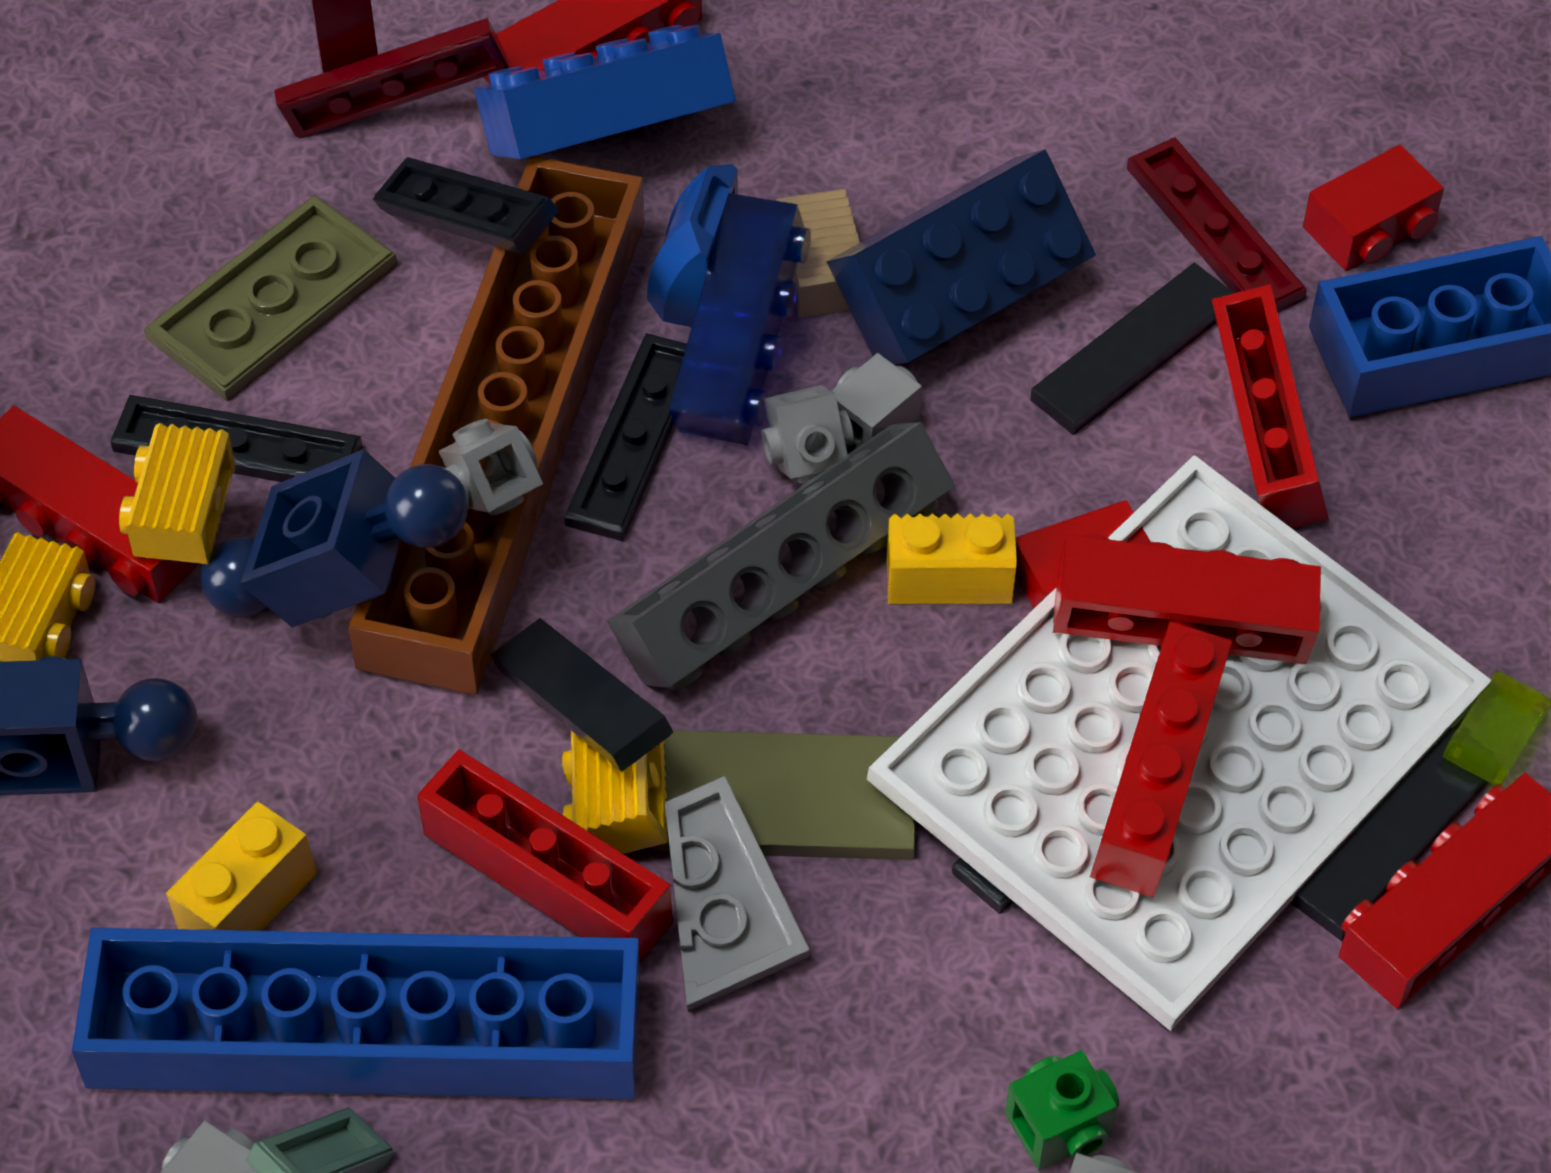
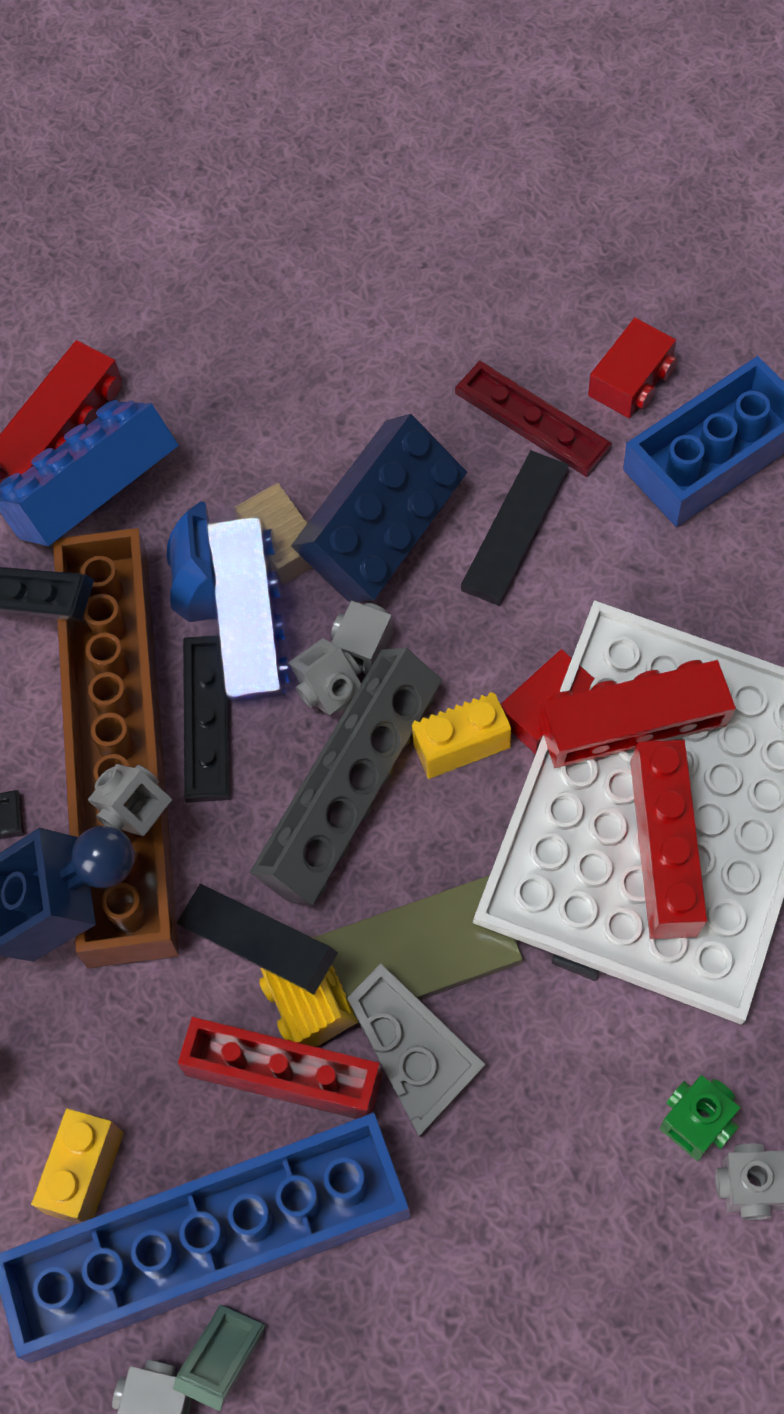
camera: 15 degrees left, 10 degrees up
(1269, 407) = (627, 544): red brick -> none

